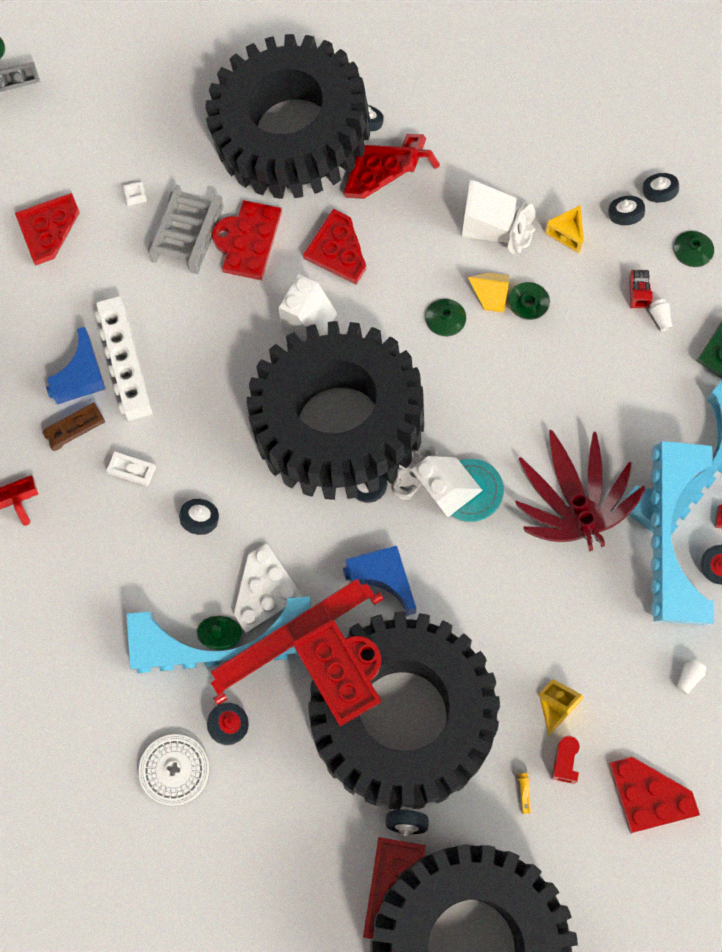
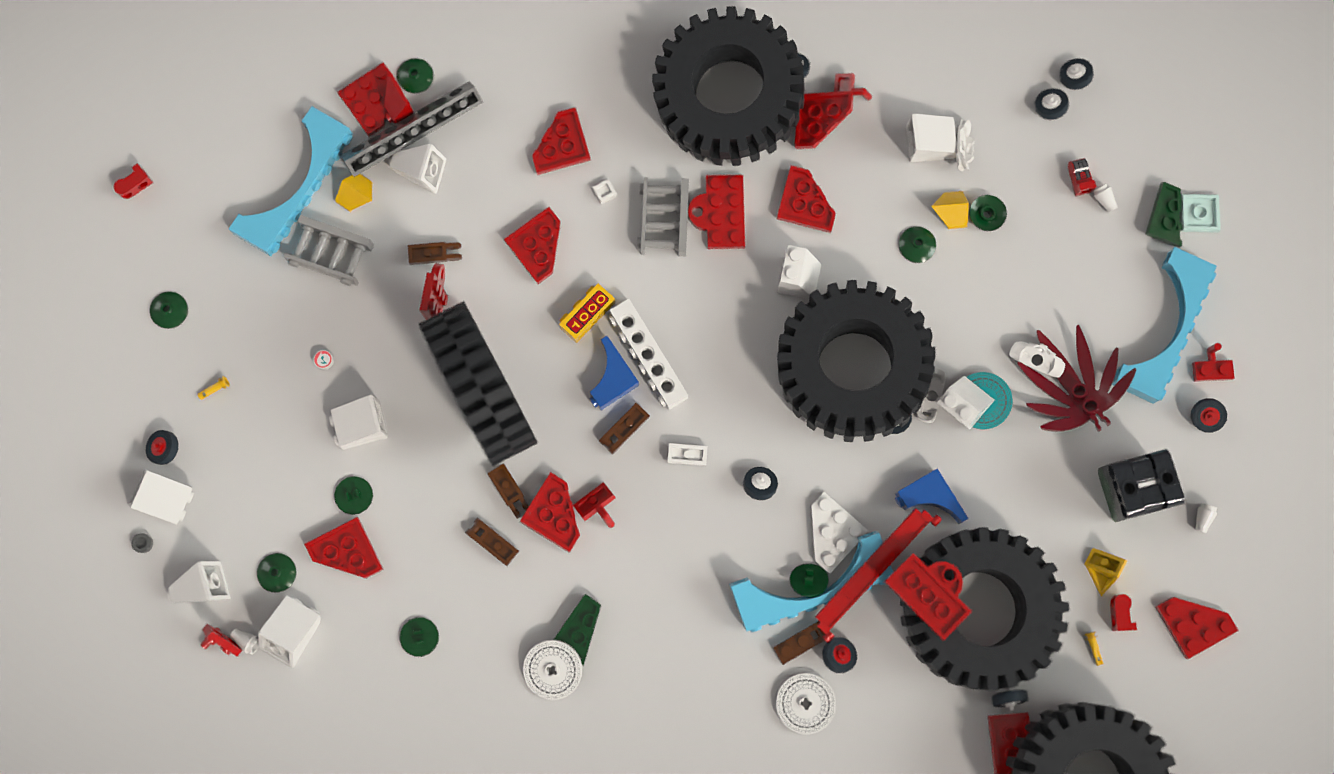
camera: 15 degrees left, 10 degrees up
(73, 303) = (586, 312): none -> yellow brick
(106, 140) = (561, 144): none -> red plate
(186, 701) = (798, 643): none -> reddish brown plate
(555, 469) = (1051, 363): none -> white piece
(567, 229) = (1006, 136): yellow slope -> none
(621, 618) = (1141, 485): none -> black piece
(673, 594) = (1154, 347): medium azure arch -> none
(691, 255) = (1111, 130): dark green dish -> none

